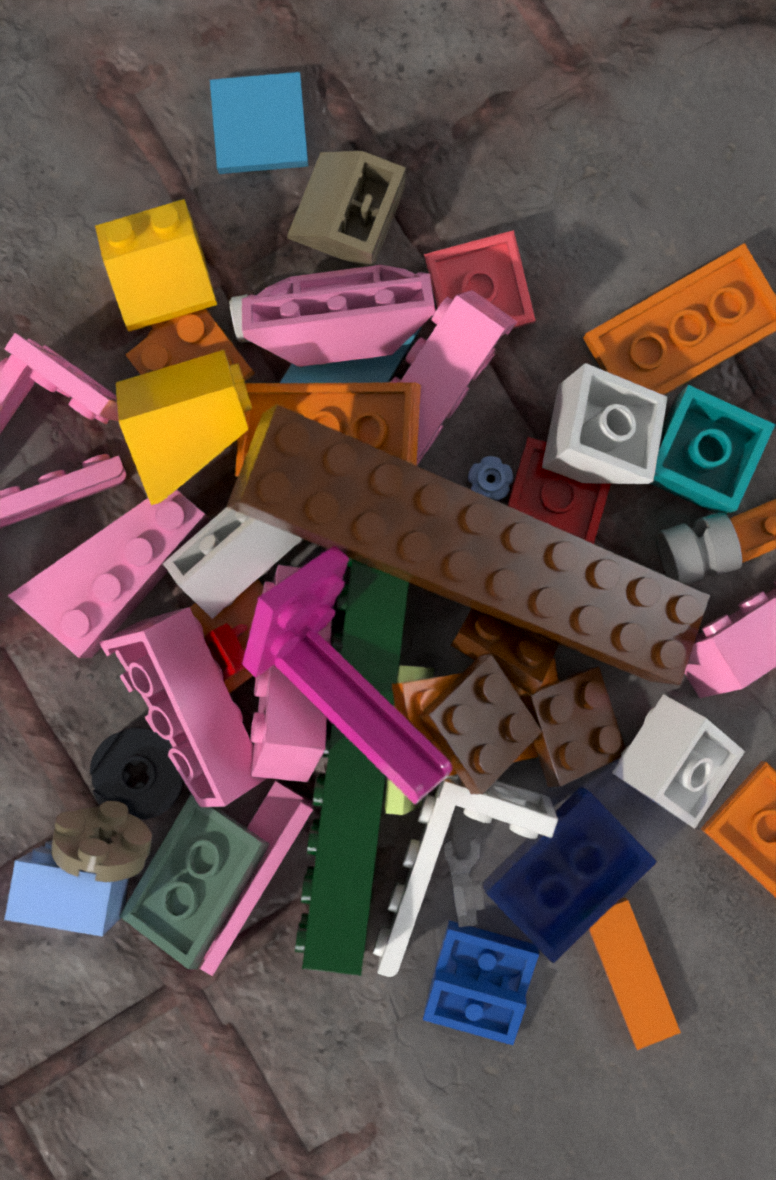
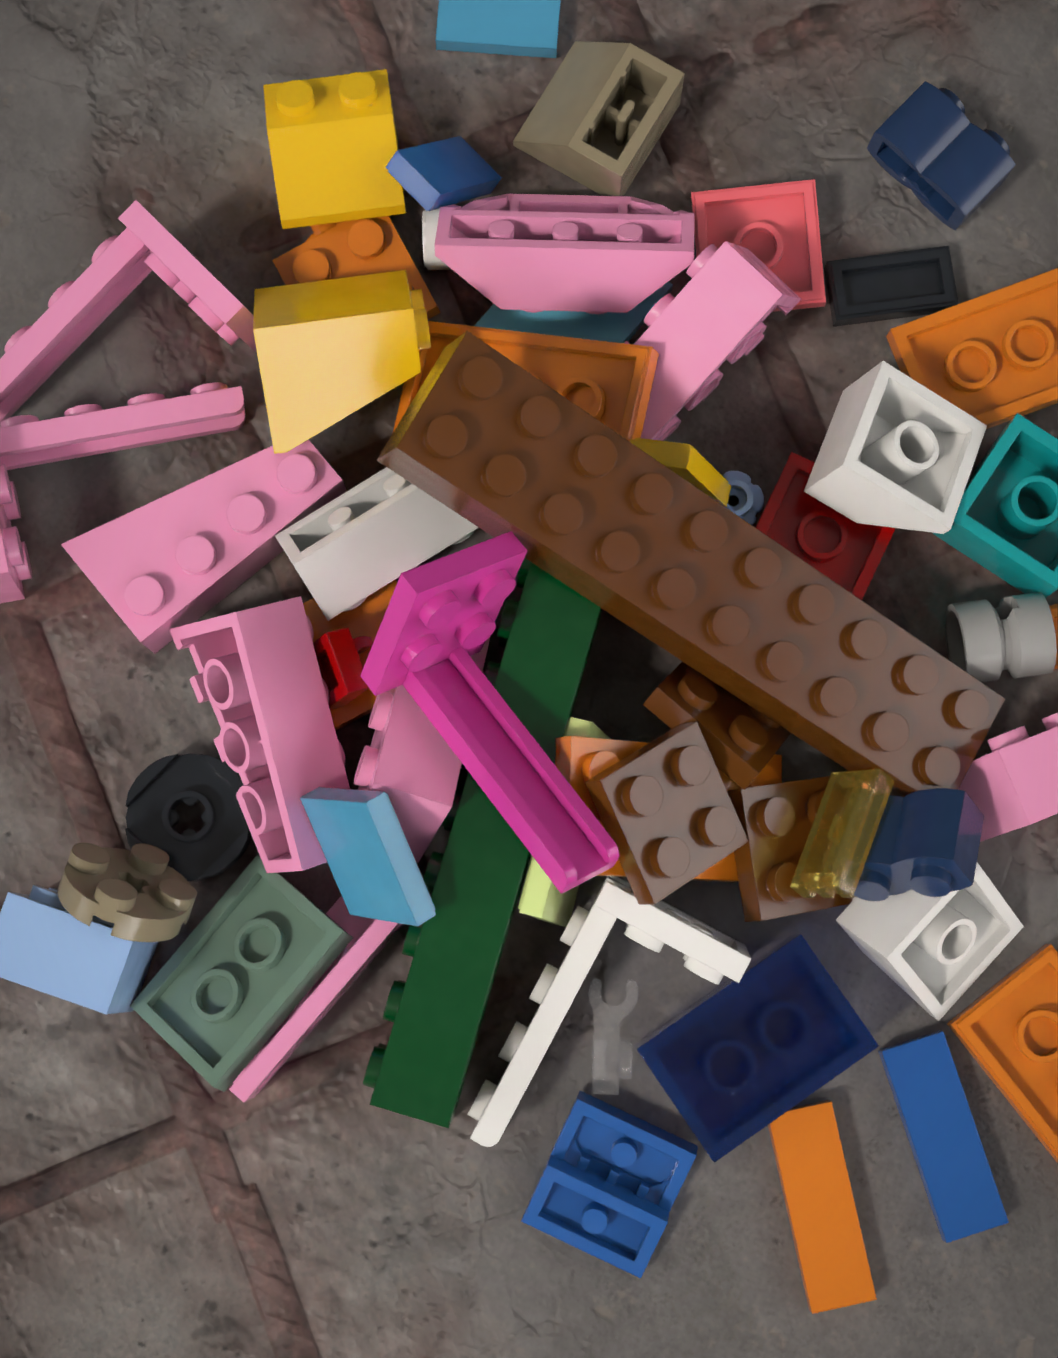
camera: 10 degrees right, 5 degrees down
(239, 270) = (443, 173): none -> blue tile
(271, 790) = (369, 855): none -> dark azure tile
(451, 467) = (689, 465): none -> yellow tile
(580, 299) = (890, 285): none -> black tile
(603, 195) = (941, 154): none -> dark blue brick
(608, 714) = (842, 833): none -> clear yellow tile
(656, 714) = (923, 845): none -> dark blue brick
(710, 909) = (943, 1136): none -> blue tile

